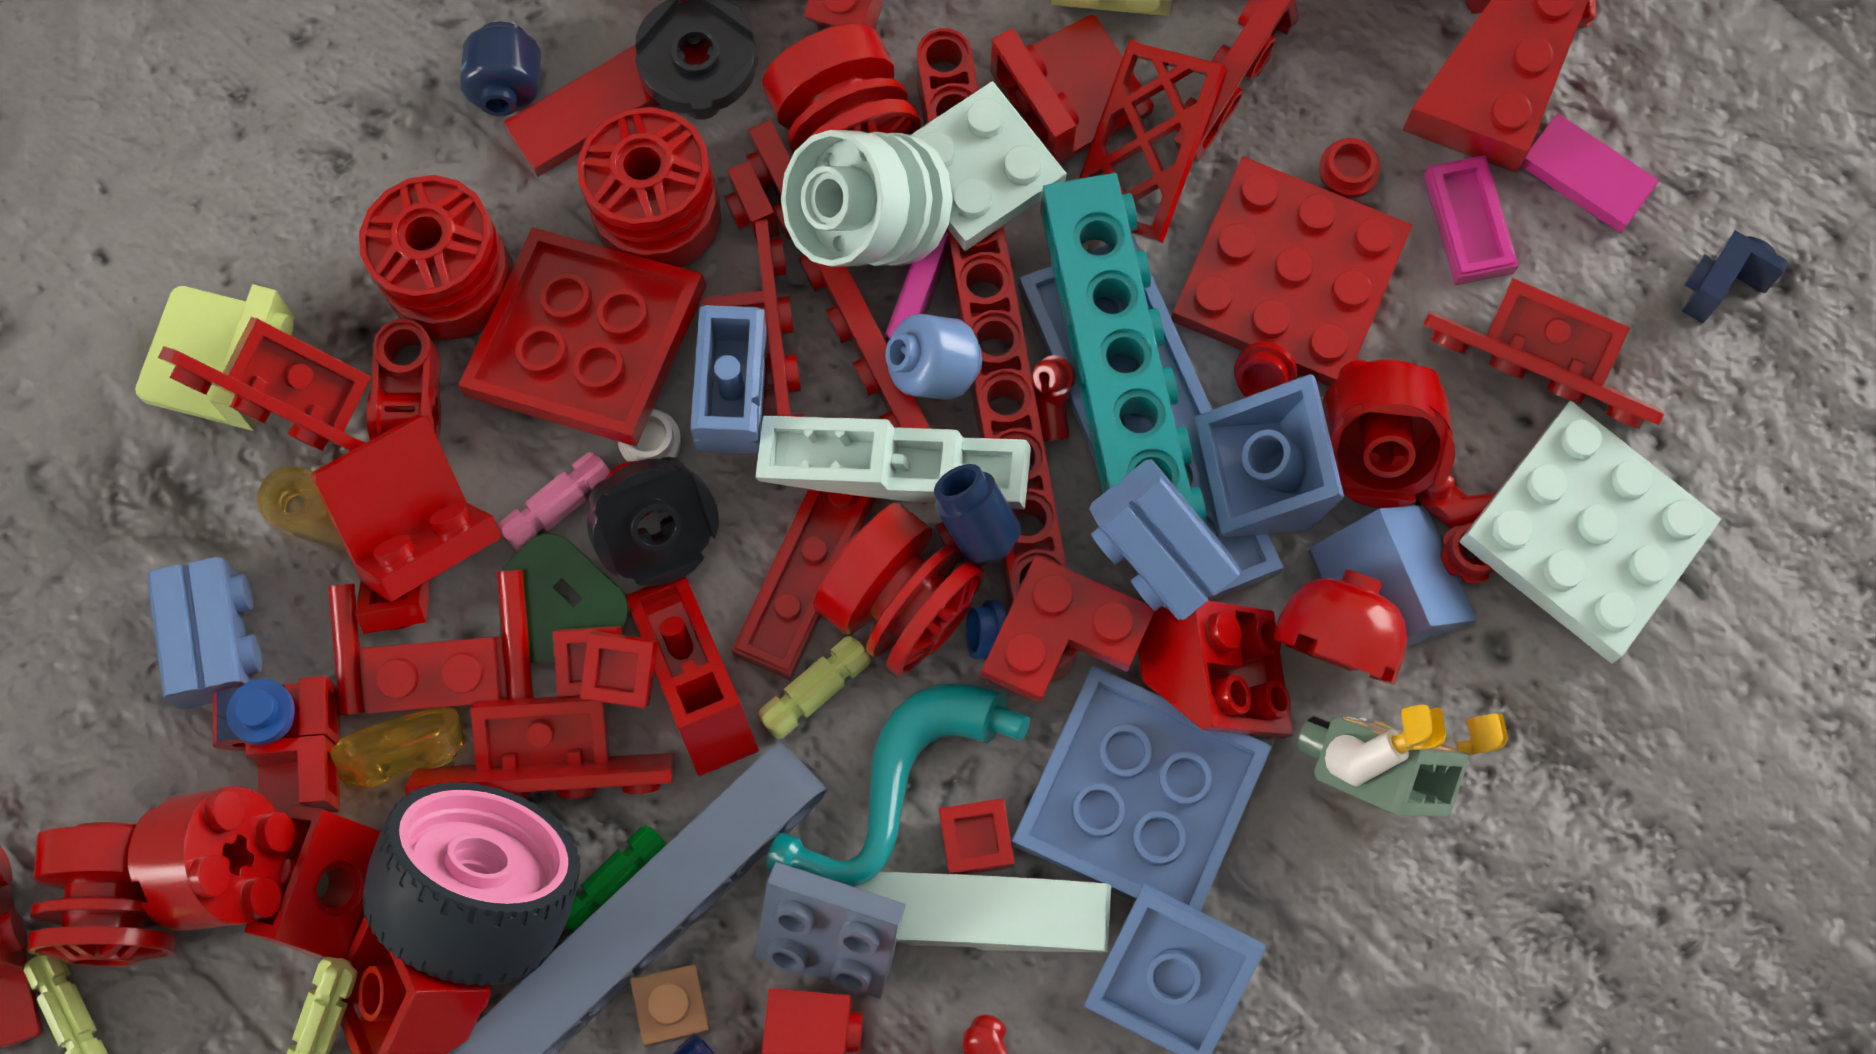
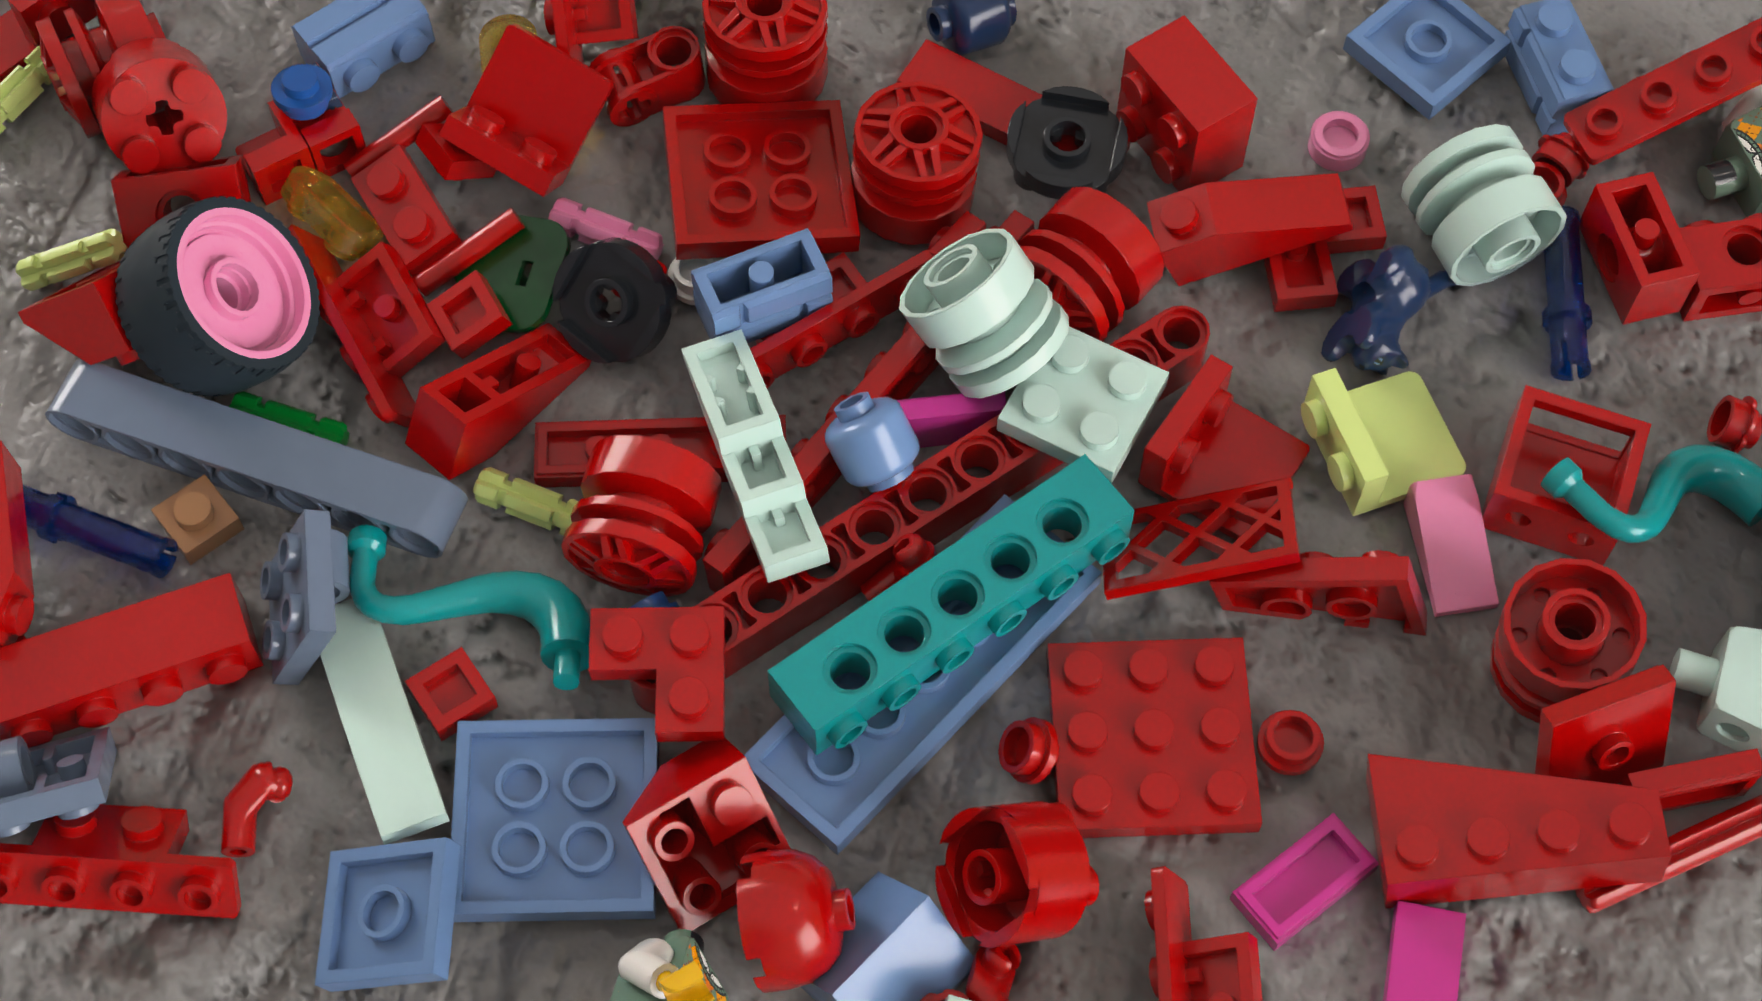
camera: 65 degrees right, 10 degrees down
(618, 669) = (461, 328): red plate -> none
(976, 514) = (728, 531): dark blue brick -> none
(1163, 541) = (776, 694): medium blue brick -> none
(1270, 461) = (924, 774): medium blue slope -> none

